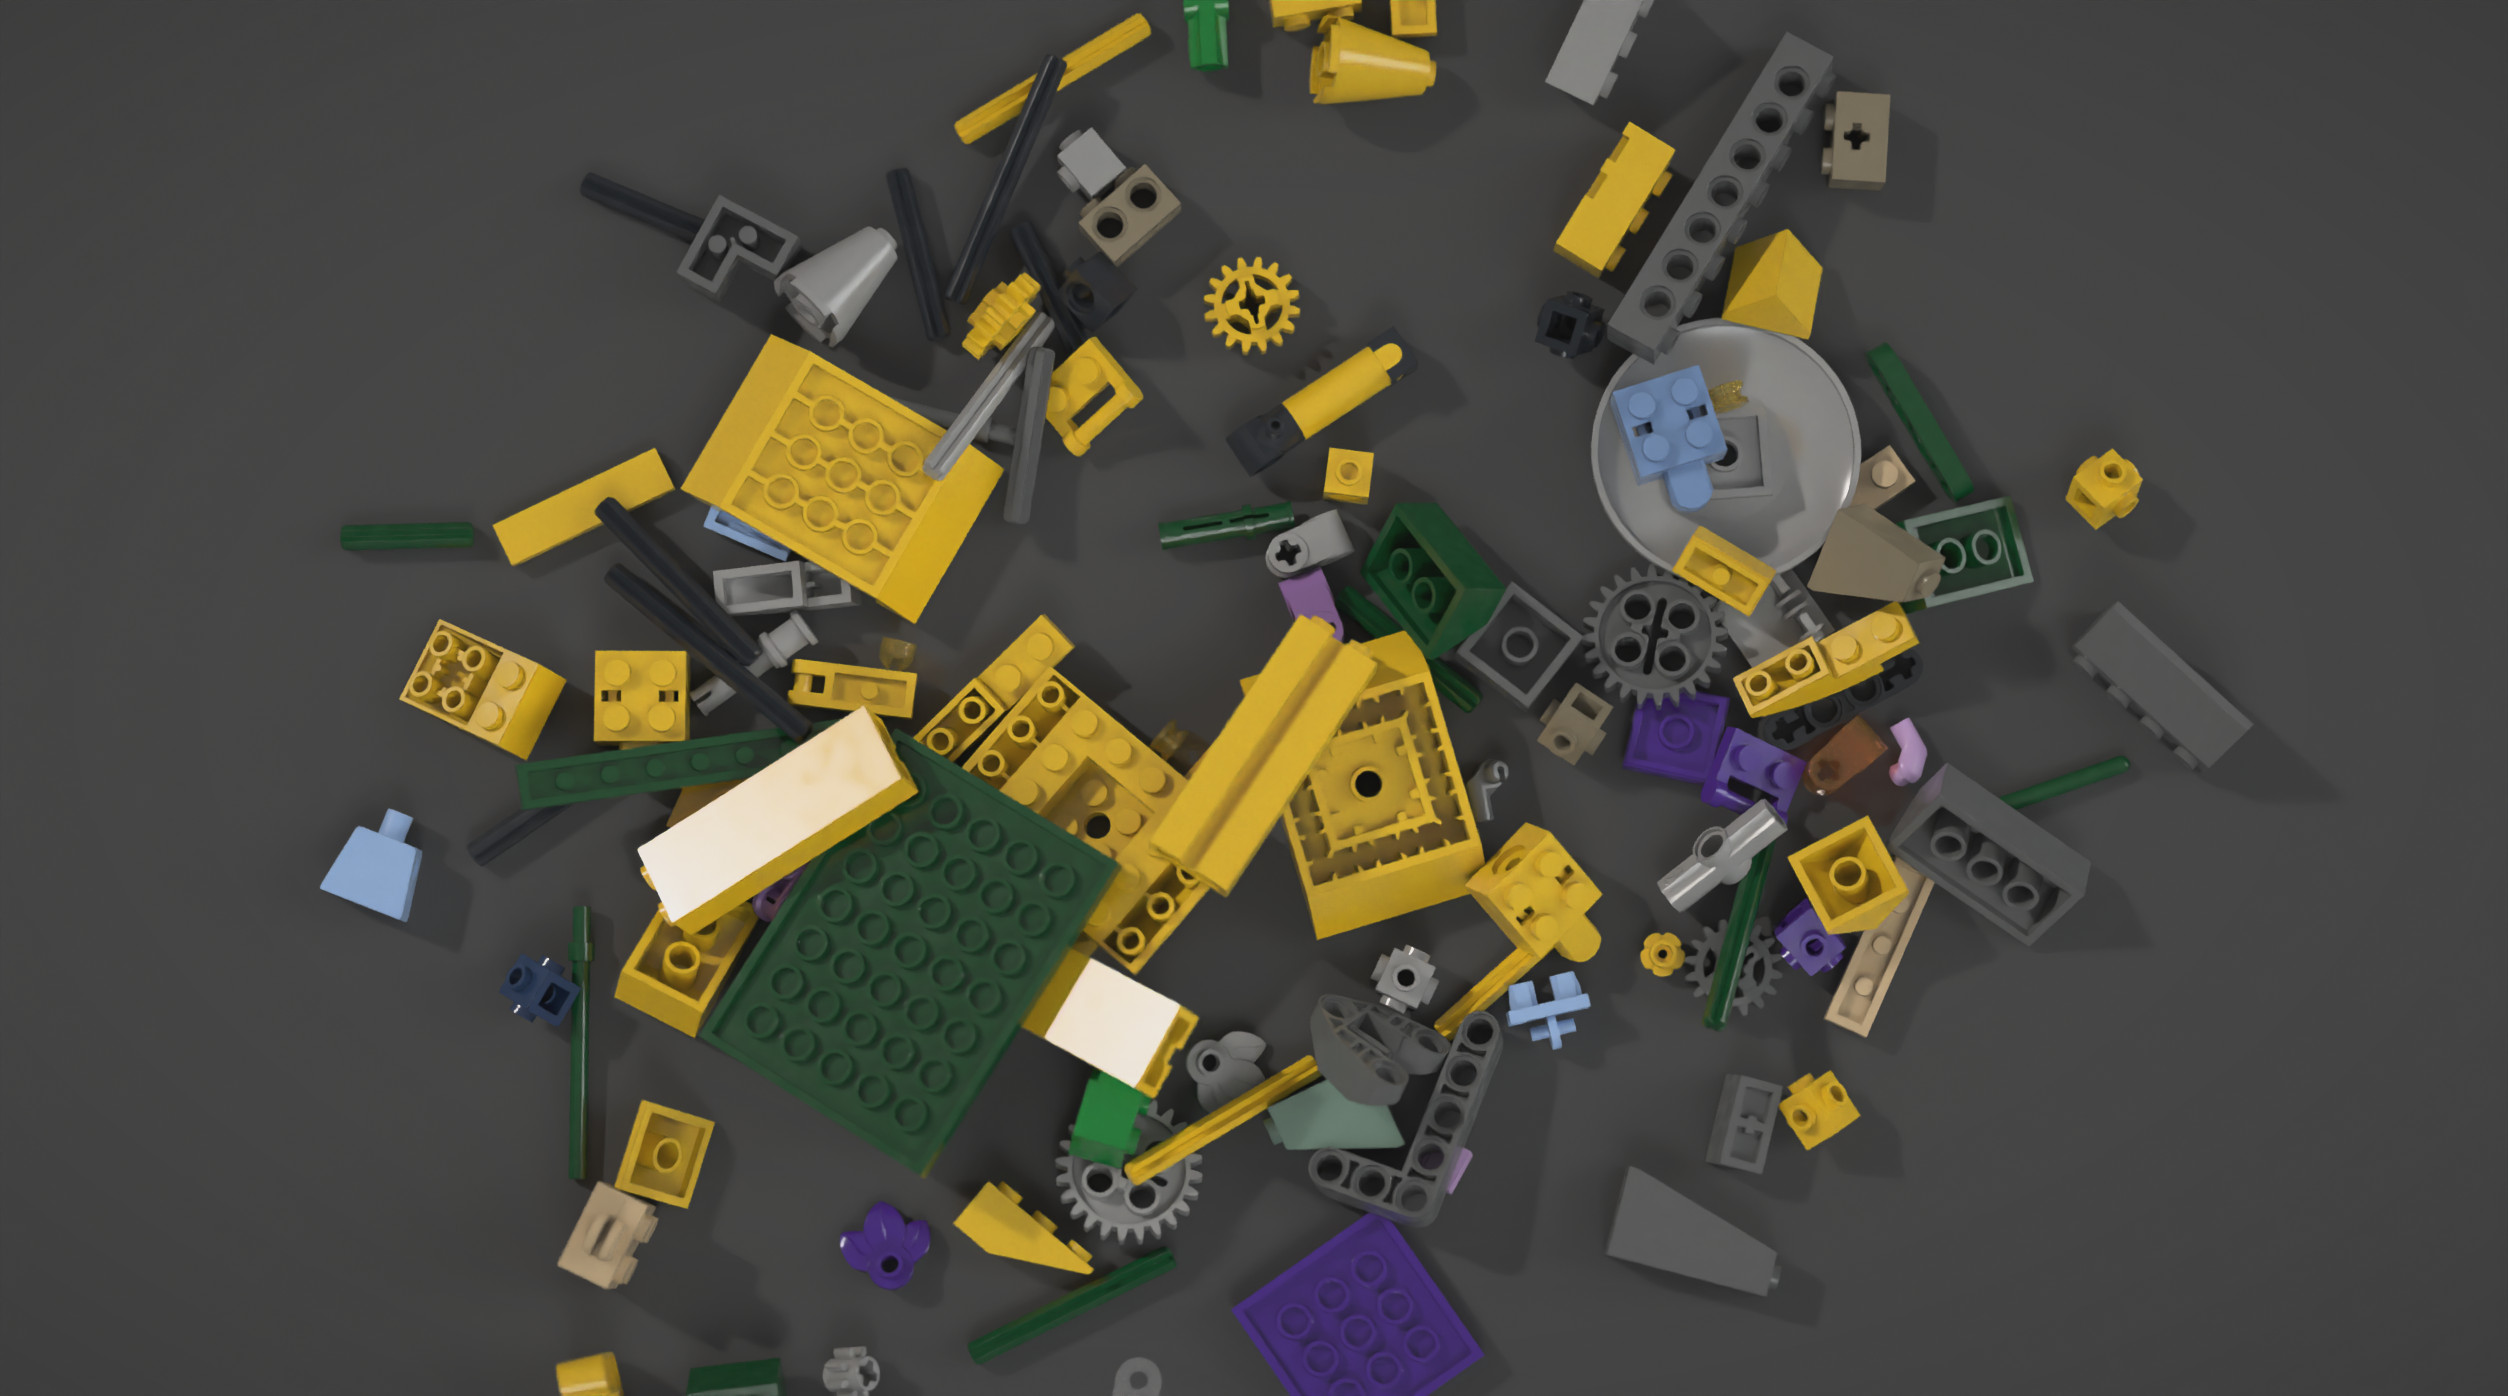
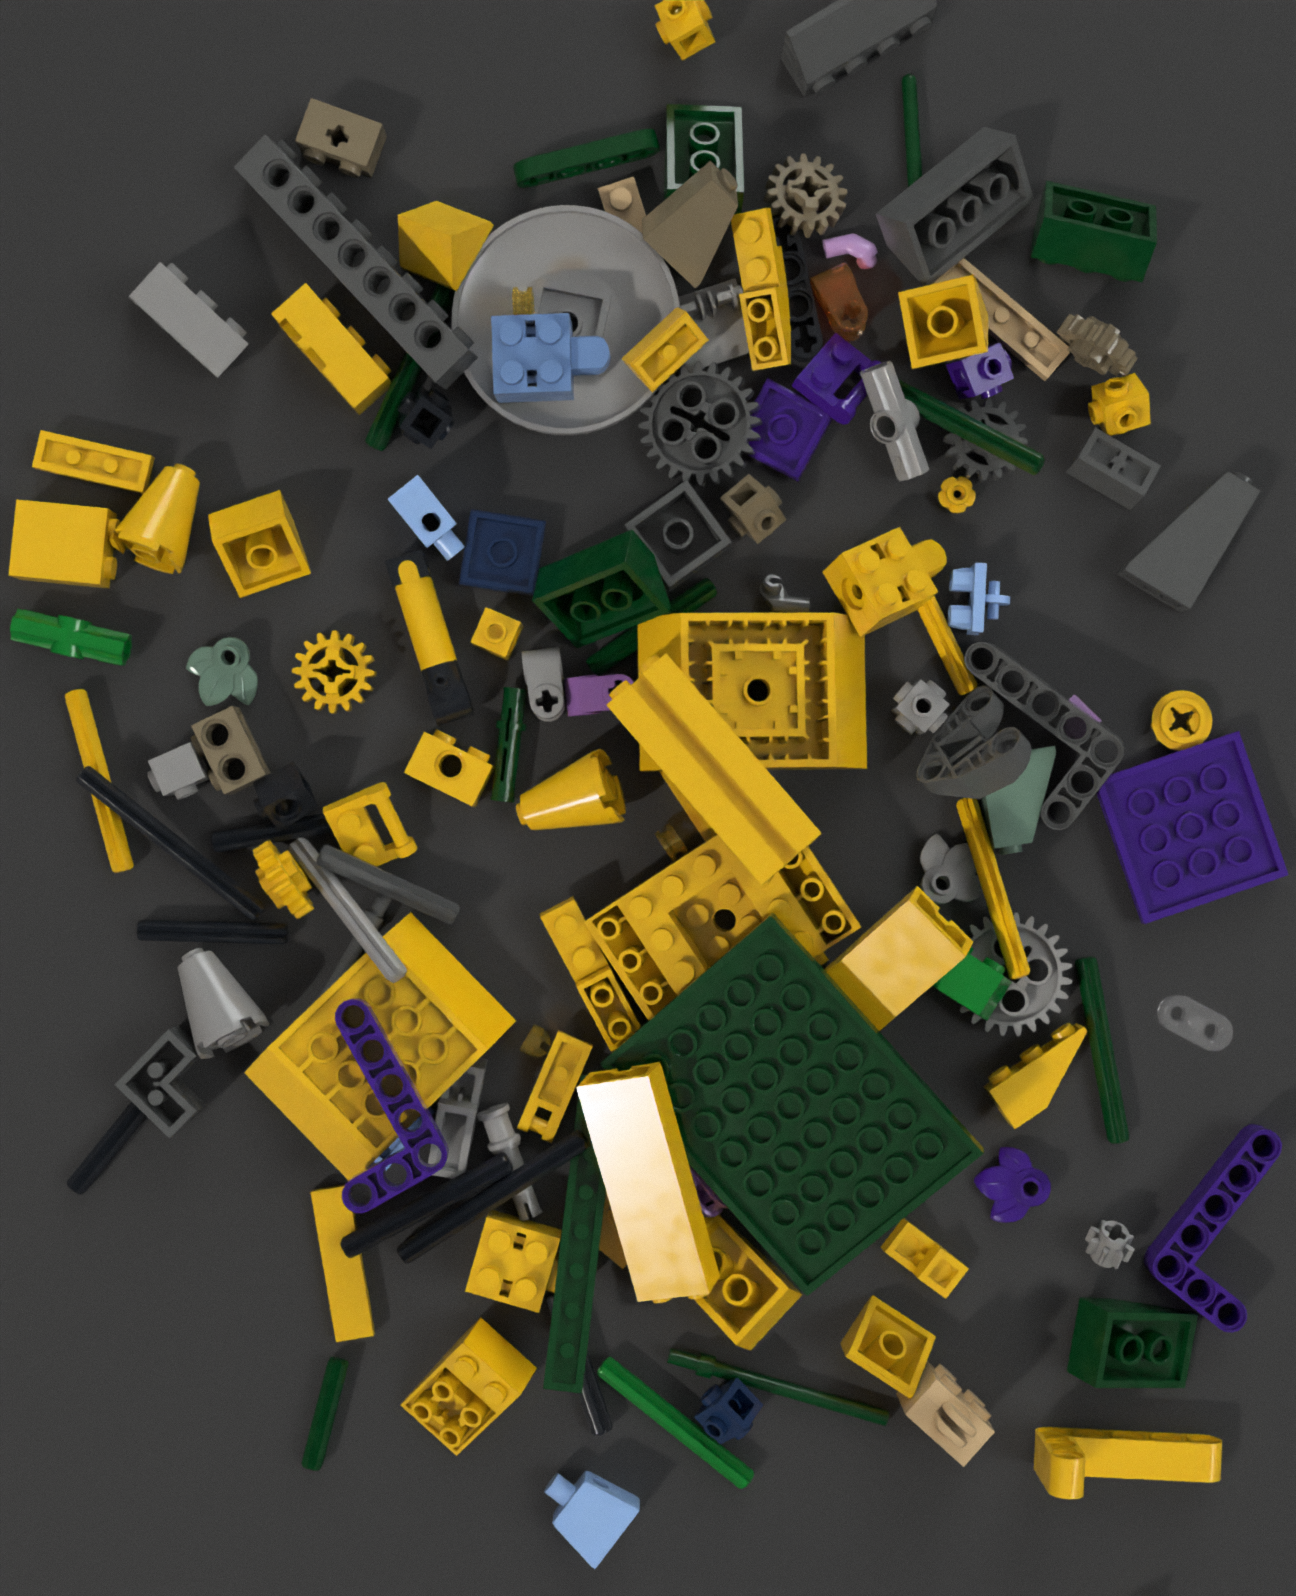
camera: 70 degrees left, 5 degrees up
(506, 936) = (675, 1422): none -> green axle
(774, 1168) = (924, 1258): none -> yellow slope
(783, 510) = (393, 1107): none -> dark purple beam
(1176, 440) = (427, 767): none -> yellow brick
(1189, 617) = (575, 796): none -> yellow cone
(1209, 182) = (222, 677): none -> sand green plate
(1372, 180) = (258, 543): none -> yellow slope
(1443, 456) = (502, 552): none -> dark blue plate
(1471, 343) = (416, 501): none -> light blue torso
(1499, 1283) = (1198, 723): none -> yellow gear
(1602, 289) = (403, 383): none -> dark green axle
(1876, 1060) = (1097, 345): none -> dark tan gear
(1967, 678) = (802, 197): none -> dark tan gear
(2010, 1023) = (1094, 232): none -> dark green slope

